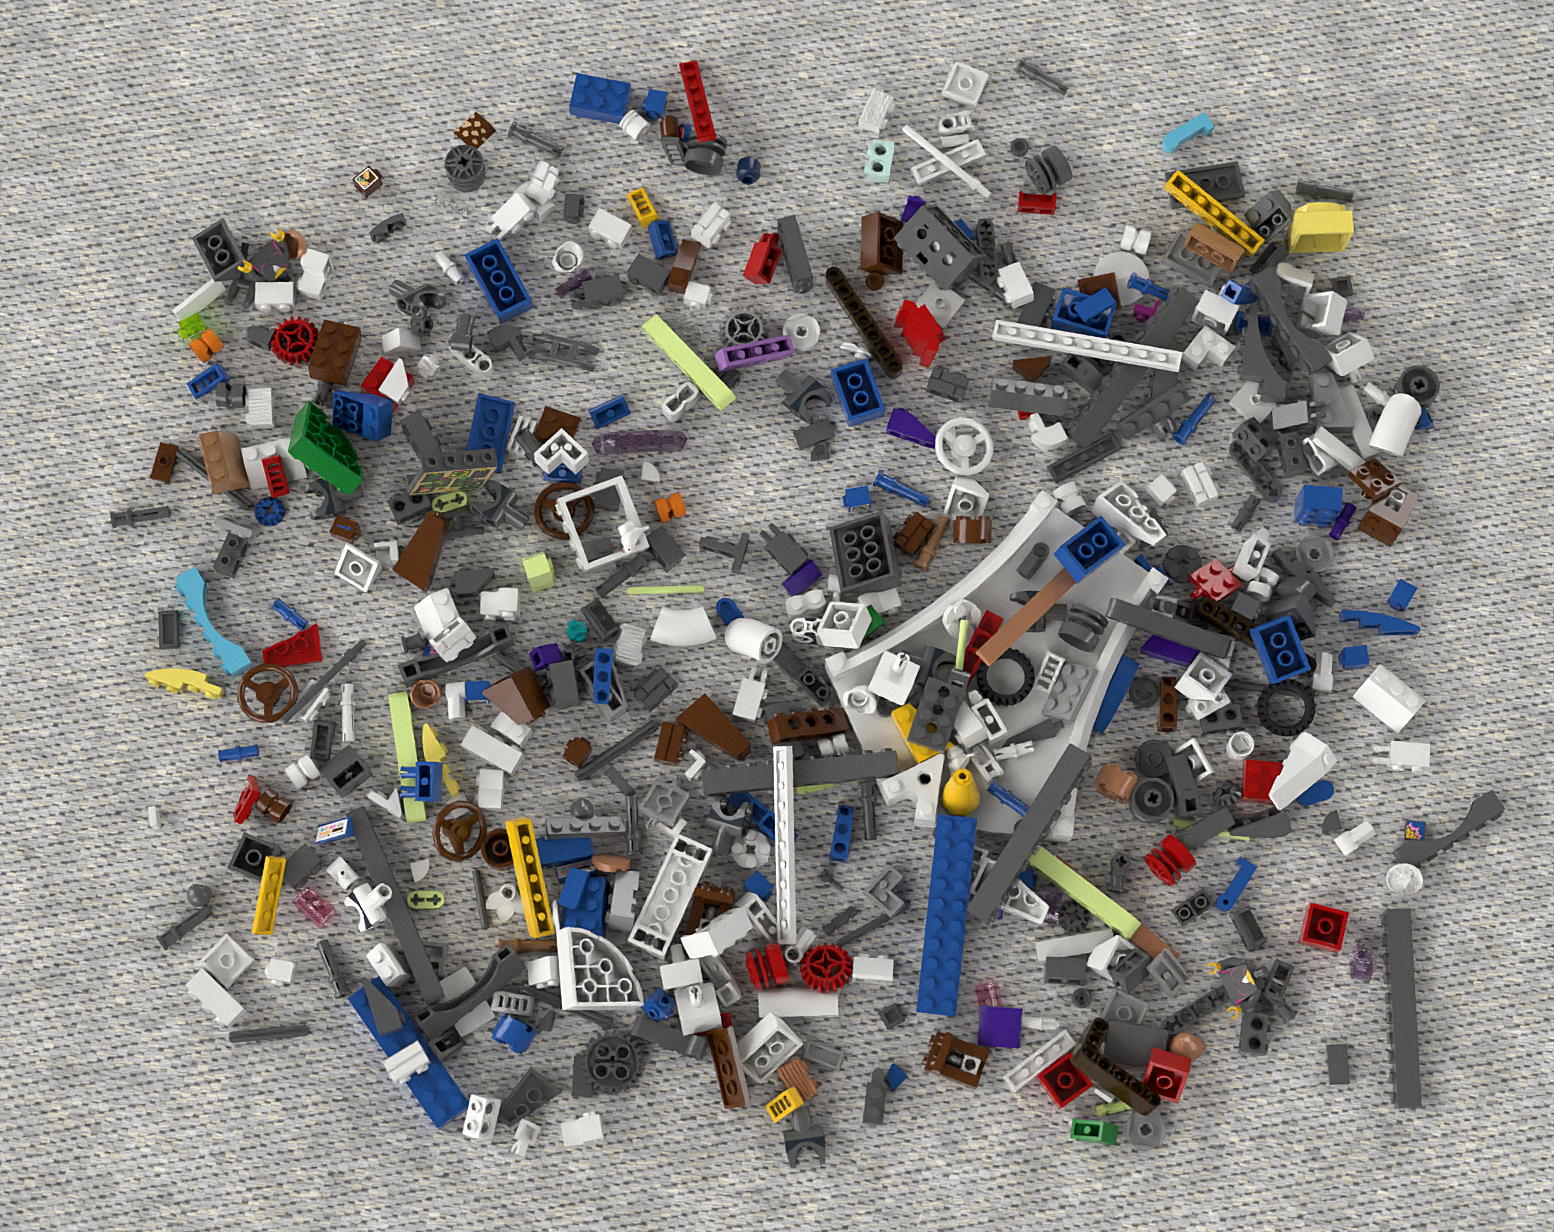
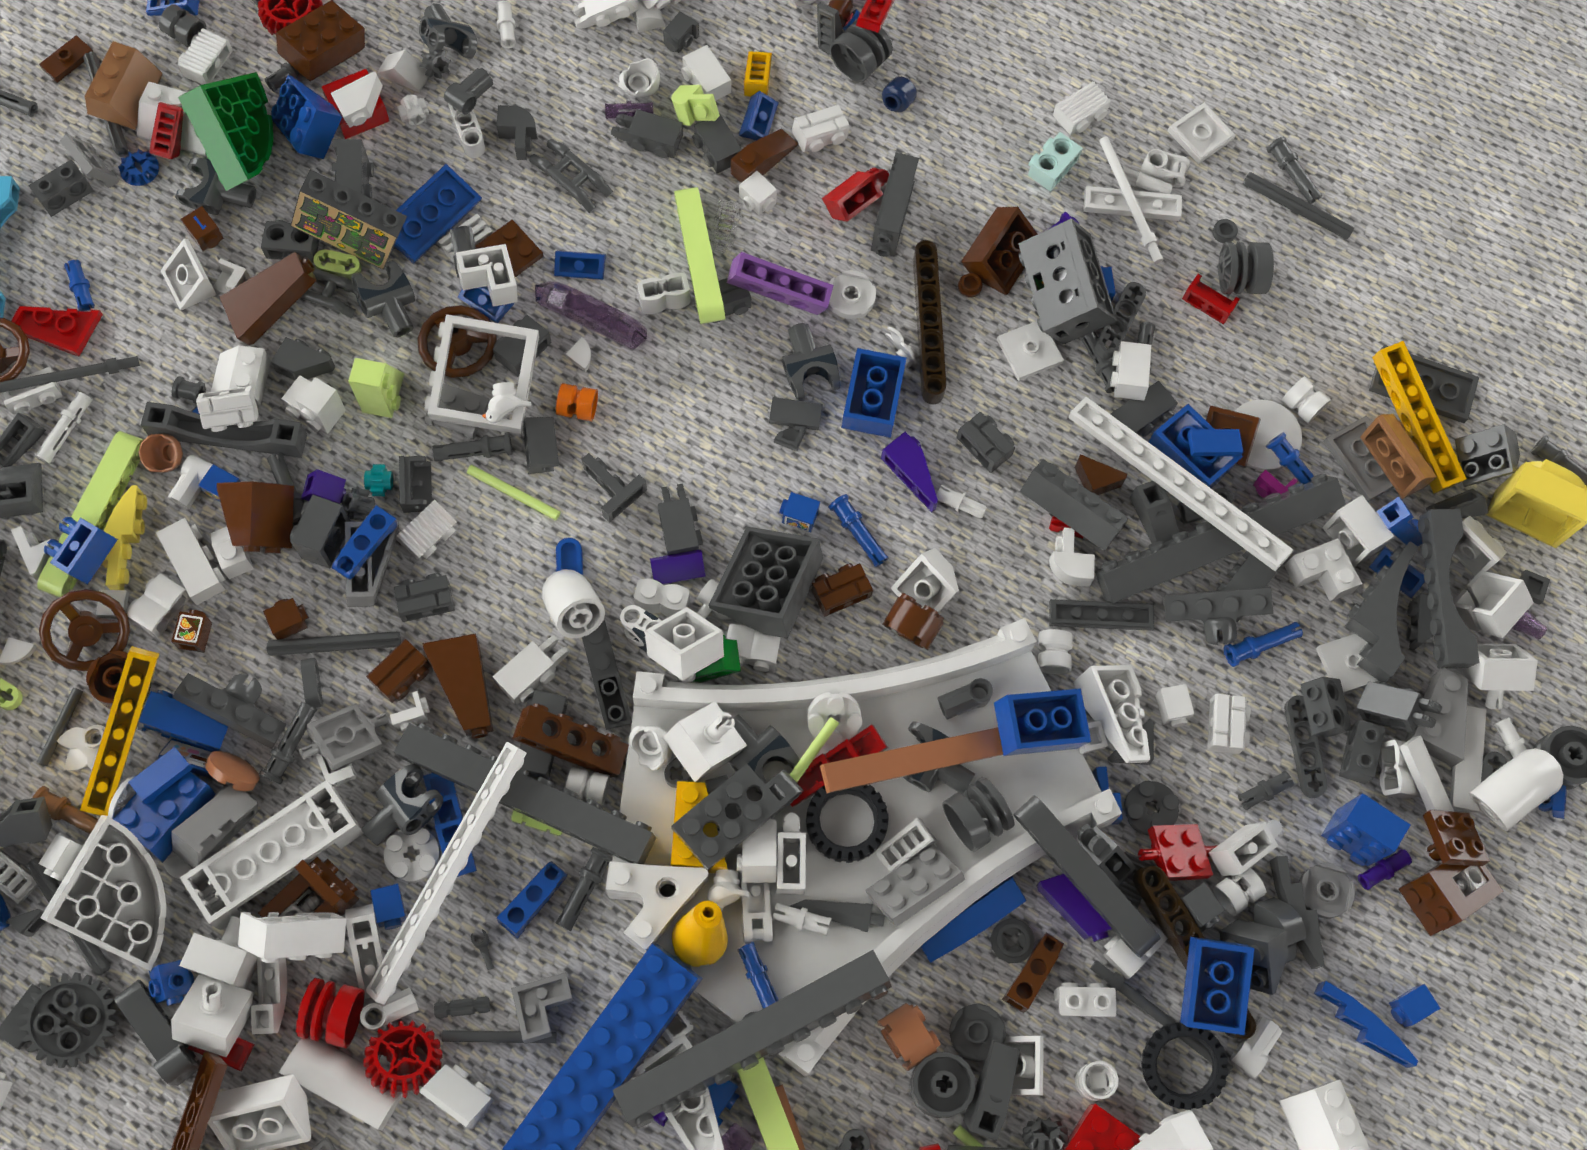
camera: 25 degrees right, 5 degrees down
(499, 281) = (547, 62): blue brick -> none
(523, 793) = (192, 631): none -> reddish brown brick
(618, 259) = (693, 105): none -> yellowish green brick
(683, 627) = (500, 543): white brick -> none
(734, 318) = (795, 247): light grey gear -> none
(919, 331) = (989, 362): red slope -> none
(927, 551) = (848, 618): medium nougat pin -> none
(963, 446) = (962, 520): white piece -> none
(1057, 101) = (1298, 205): none -> dark grey axle
(1186, 132) = (1434, 315): medium azure leg -> none
(1203, 679) = (1096, 967): white slope -> none
(1222, 723) = (1090, 1036): dark grey brick -> none
(1354, 657) = (1309, 1051): blue brick -> none

